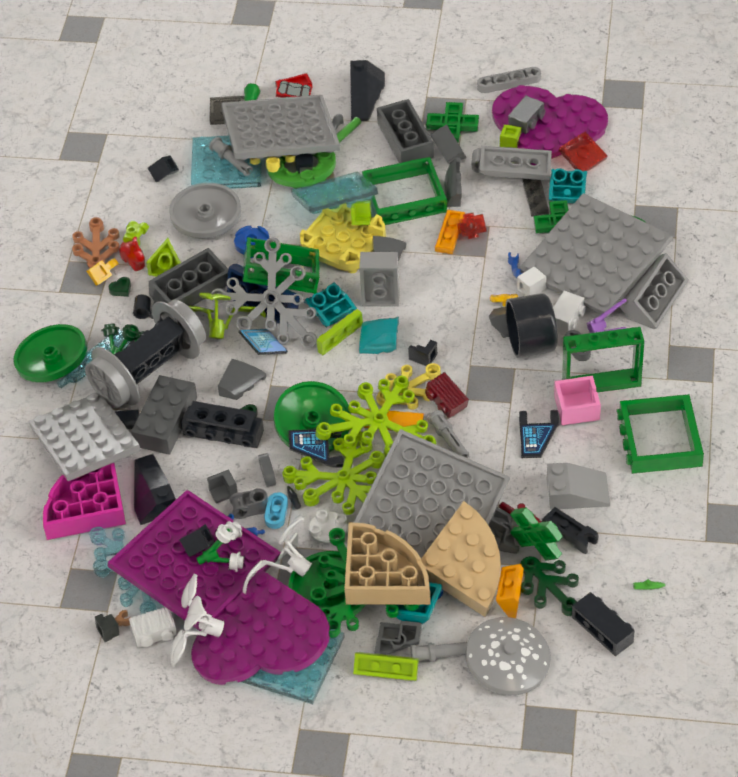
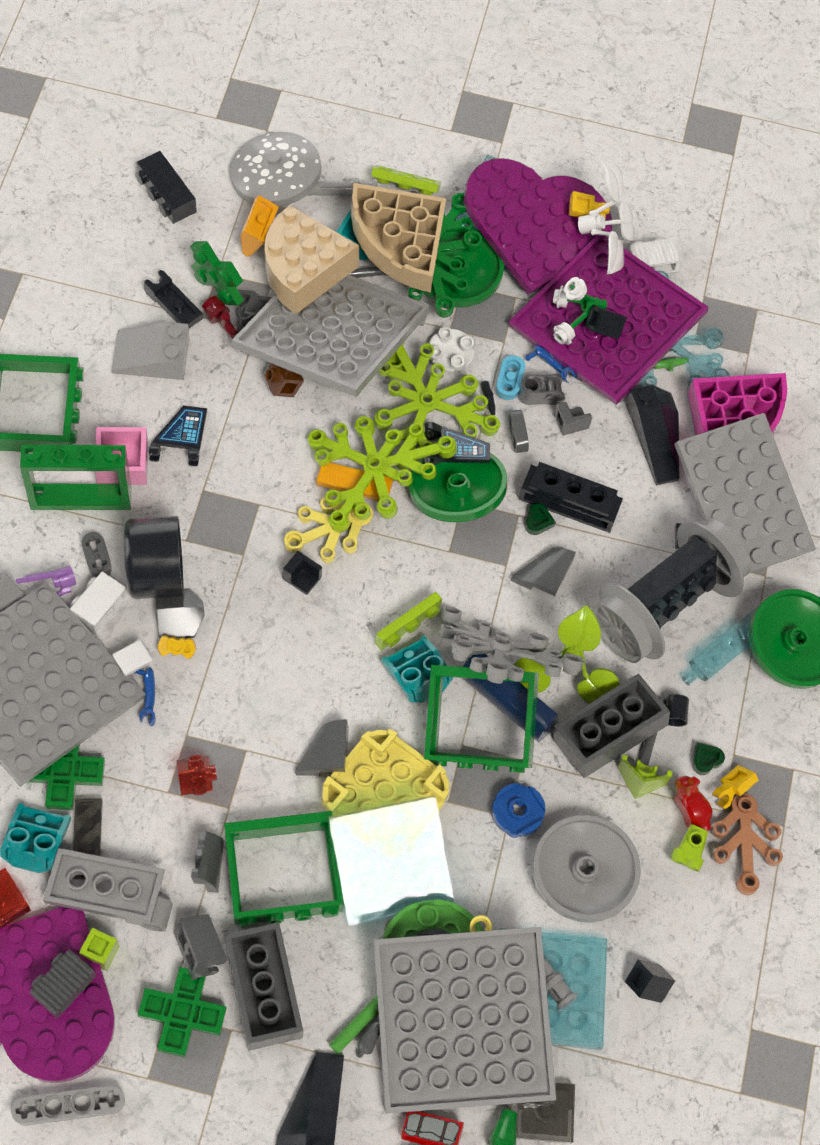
camera: 175 degrees right, 15 degrees up
(109, 626) = (701, 268): pearl dark grey piece -> none
(129, 333) = (718, 648): dark green plant -> none
(163, 414) = (643, 525): dark grey brick -> none
(218, 643) = (583, 203): none -> yellow plate
(262, 341) = (514, 614): piece -> none
(296, 562) = (500, 264): white plant -> none
(361, 213) = (356, 799): lime panel -> none
(379, 278) = (345, 670): light grey piece -> none
(379, 336) = (355, 612): teal slope -> none
(444, 429) = (293, 452): light grey pin -> none
(446, 395) = (284, 494): dark red brick -> none
(449, 232) = (228, 786): light orange tile -> none
(548, 582) = (217, 245): dark green plant -> none
(648, 585) = (104, 228): bright green helmet -> none

